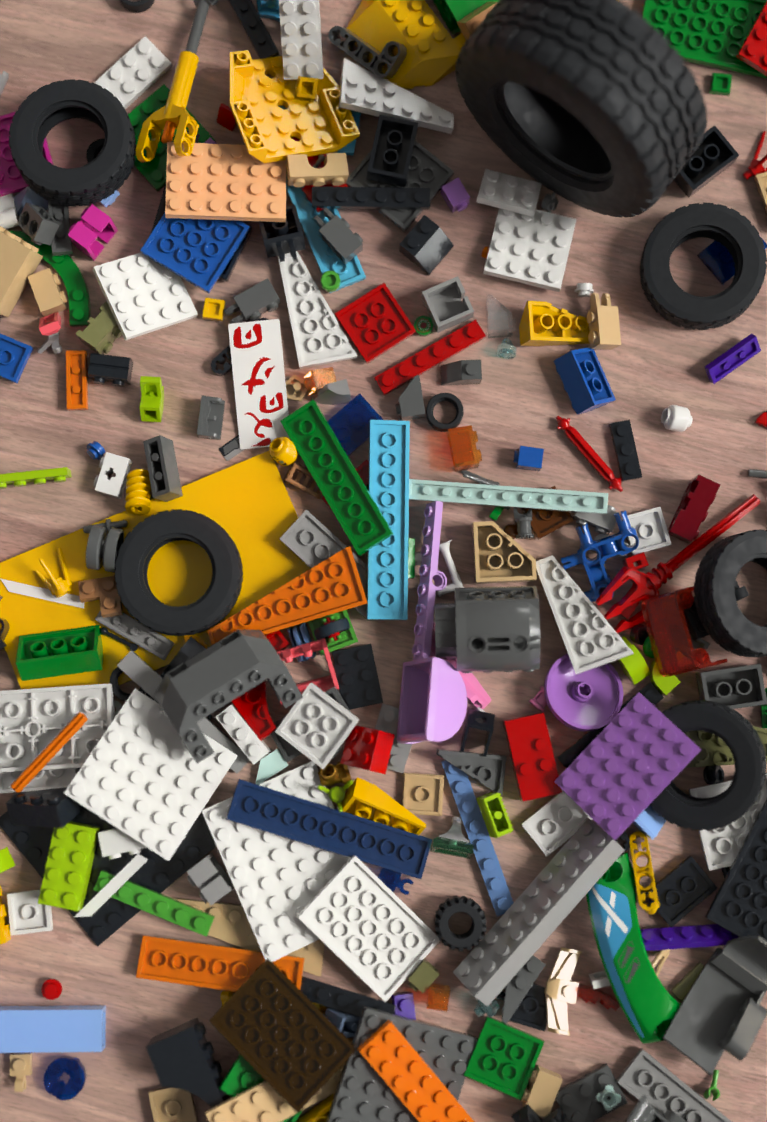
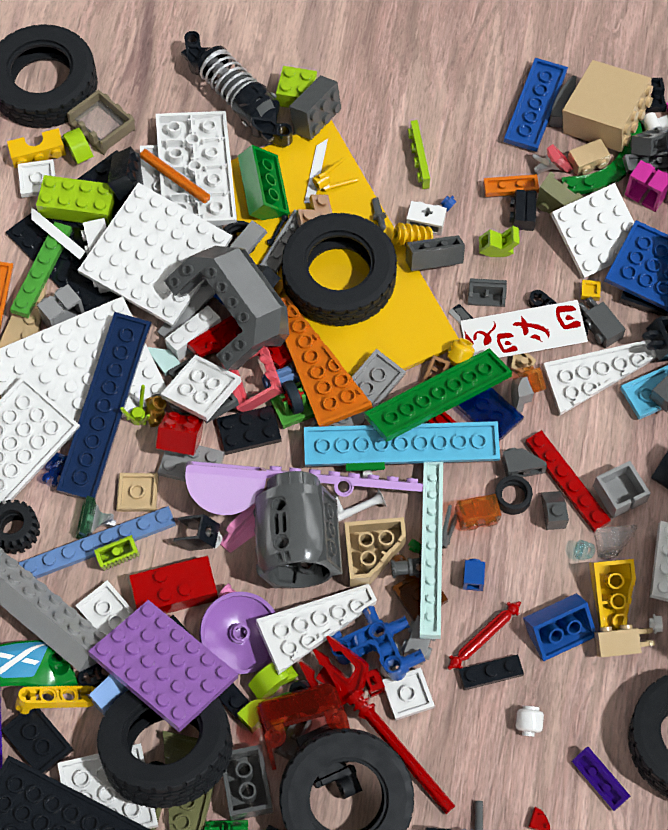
camera: 90 degrees right, 20 degrees down
(103, 548) = (358, 202): dark grey wheel -> none
(330, 281) = (630, 384): bright green tile -> none
(374, 804) = (128, 444): yellow wedge -> none
(375, 323) = (595, 428): red plate -> none
(423, 325) = (596, 470): green tile -> none
(486, 770) = (160, 547): dark grey wing -> none
(693, 508) = (433, 738): dark red wedge -> none

